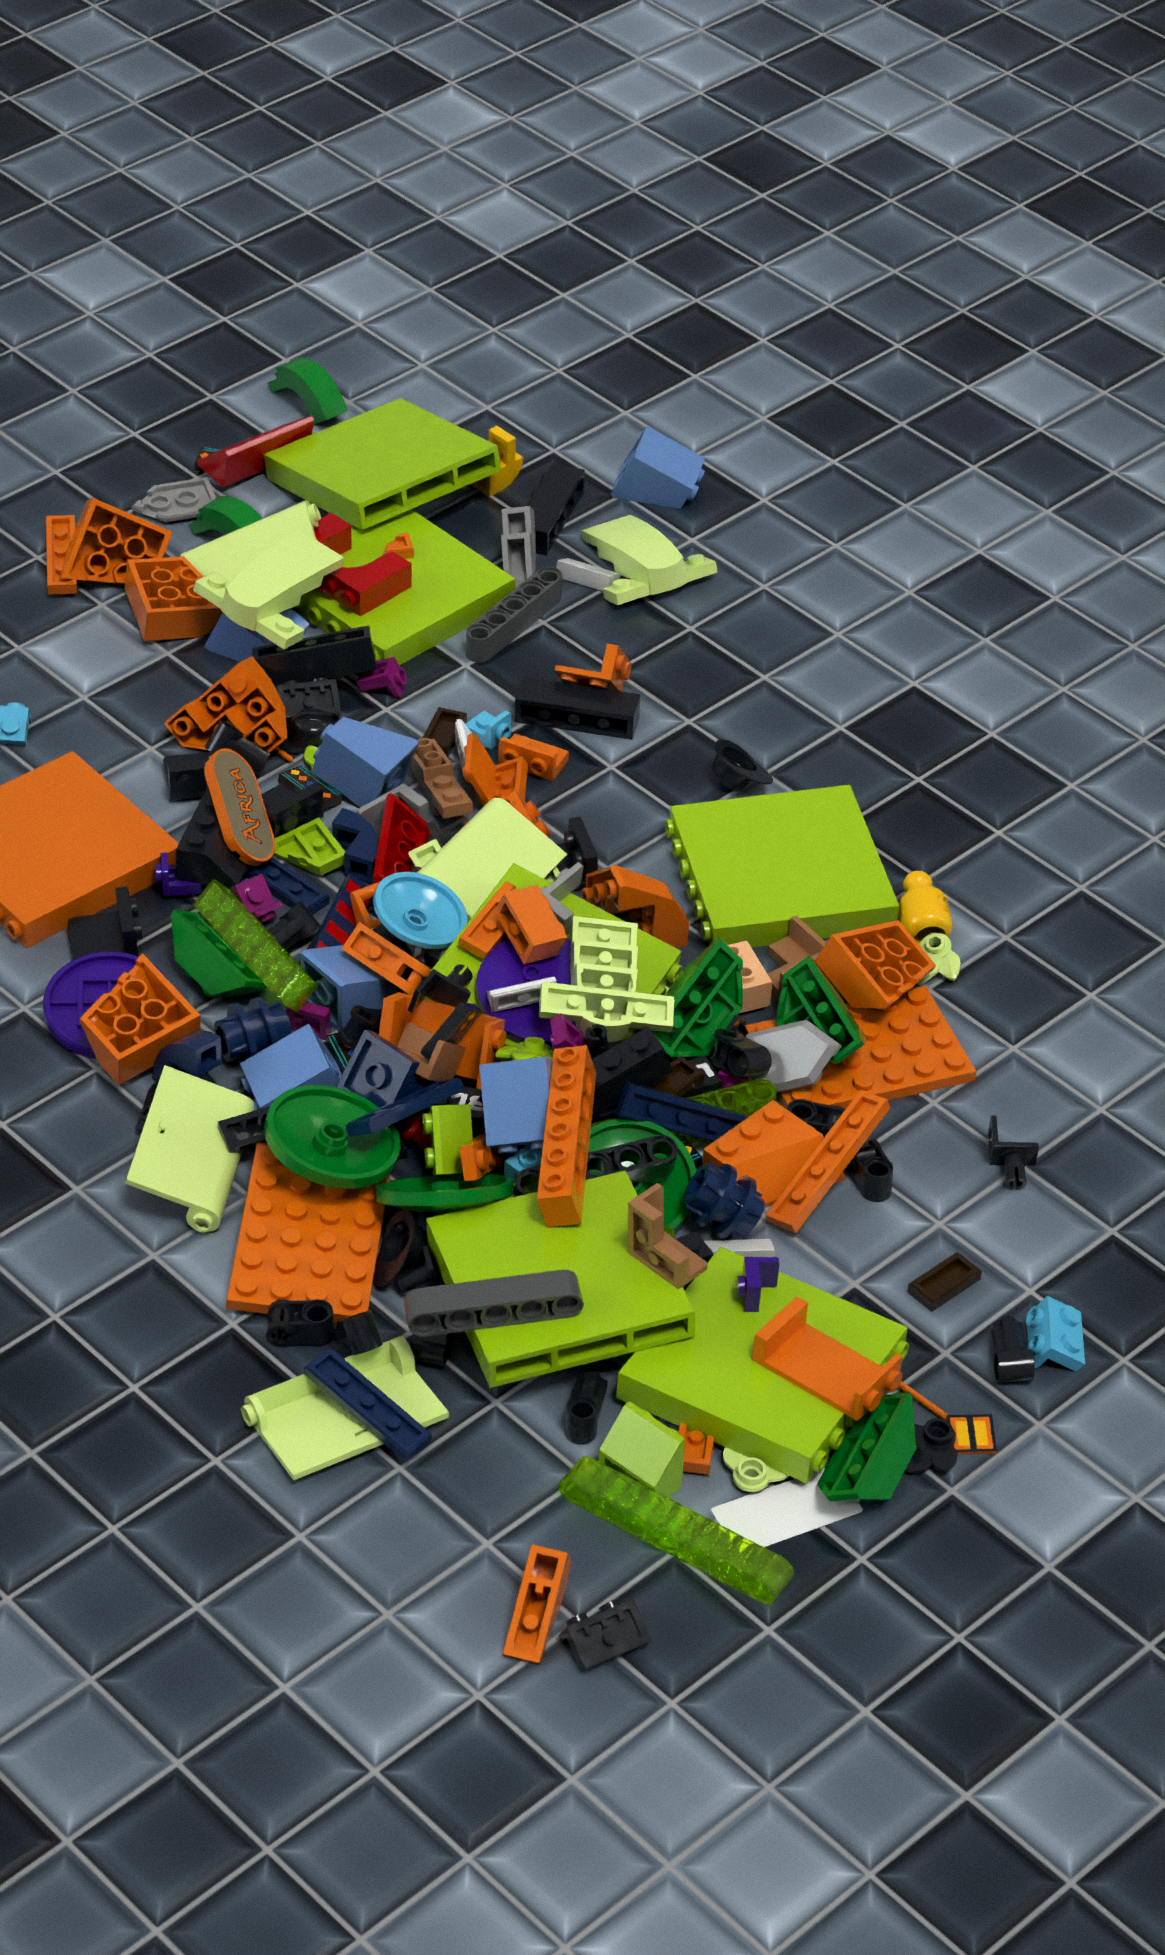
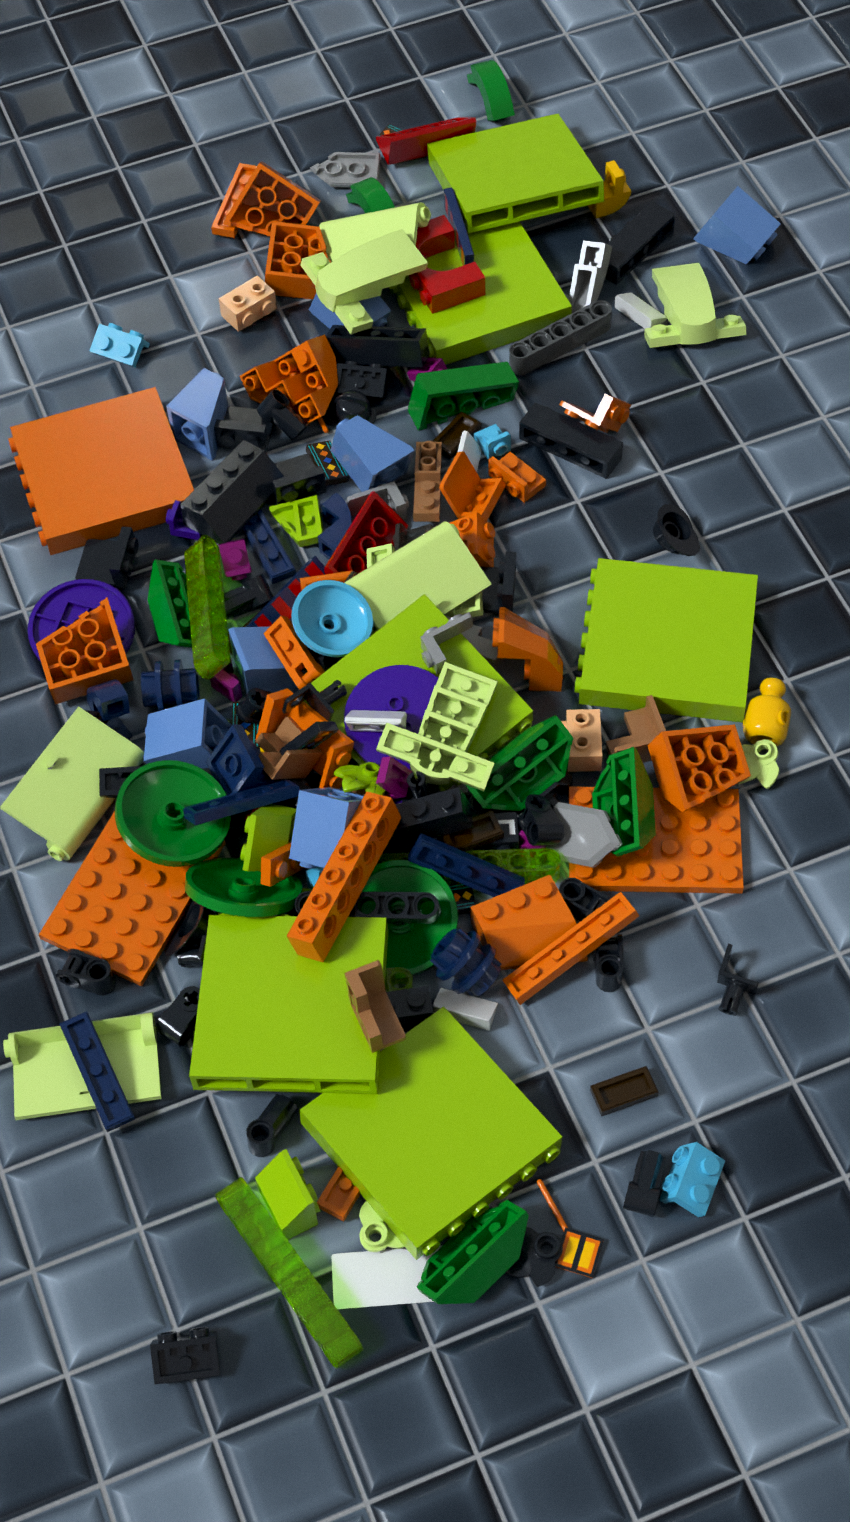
camera: 25 degrees right, 15 degrees up
(134, 650) = (247, 303): none -> light nougat brick
(141, 765) = (196, 410): none -> medium blue slope
(239, 807) = (248, 475): tile -> none
(358, 1333) = (117, 1002): black piece -> none
(363, 537) = (456, 220): none -> dark blue tile
(401, 545) = (491, 256): orange tile -> none
(421, 686) = (463, 389): none -> green wedge
(486, 930) = (385, 645): orange plate -> none
(493, 1303) = (214, 1022): dark grey beam -> none
(531, 924) = (404, 662): orange brick -> none
(537, 1603) = (145, 1307): orange slope -> none
(756, 1273) = (450, 1047): dark purple bracket -> none
(823, 1364) = (470, 1156): orange panel -> none

